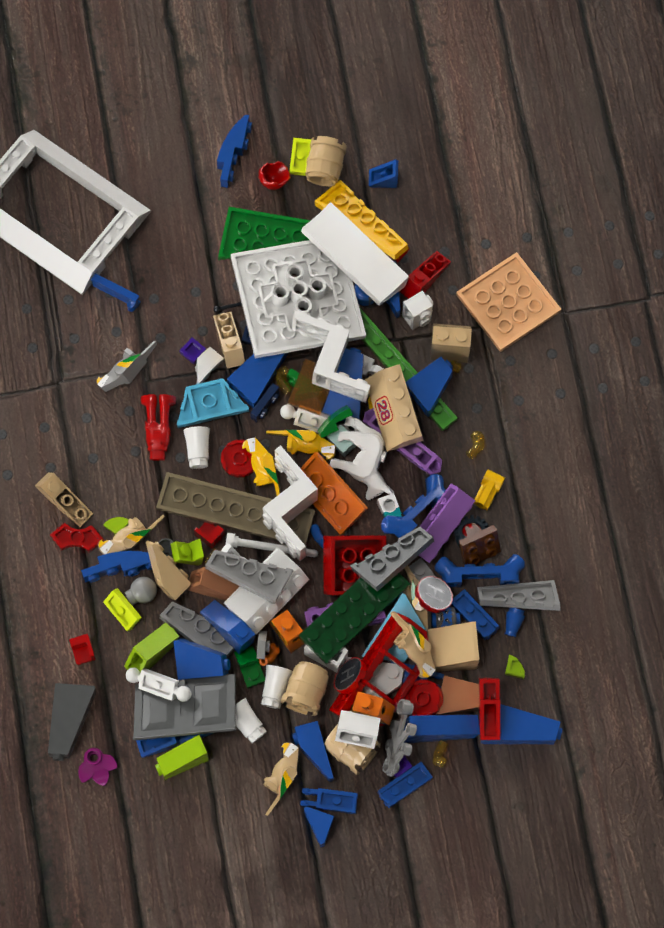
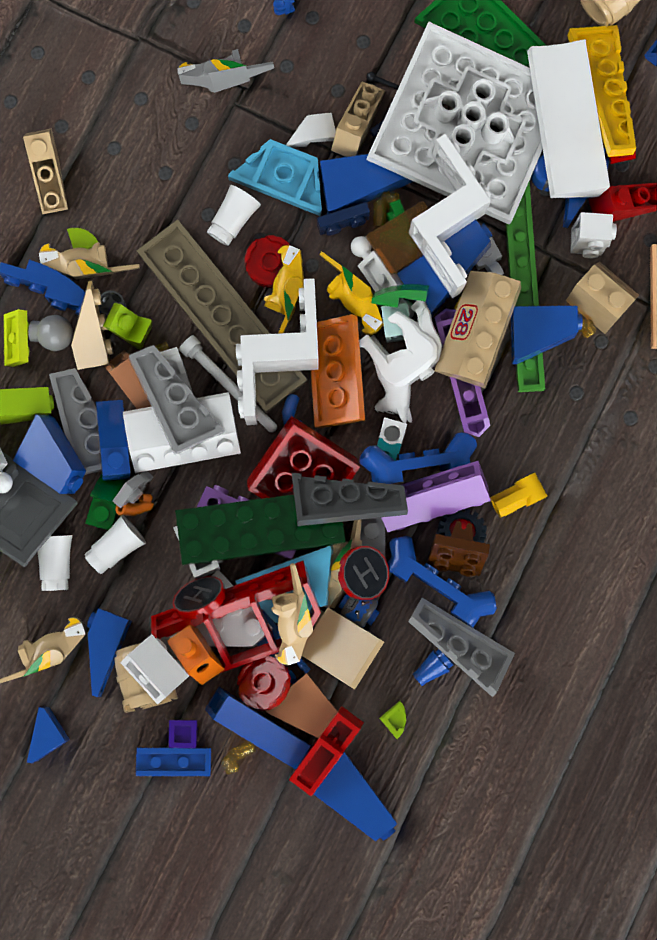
camera: 35 degrees right, 10 degrees up
(69, 537) = (39, 231): red tile -> none
(157, 434) = (200, 170): red piece -> none
(192, 350) = (308, 103): dark purple plate -> none
(209, 534) = (173, 322): red panel -> none
(287, 630) = (173, 492): orange torso -> none
(306, 688) = (143, 573): tan piece -> none
(331, 800) = (80, 719): blue hinge -> none
(399, 735) = (197, 709): light grey plant -> none
(472, 611) = (395, 627): blue hinge -> none
(478, 444) = (546, 435): clear yellow arm -> none

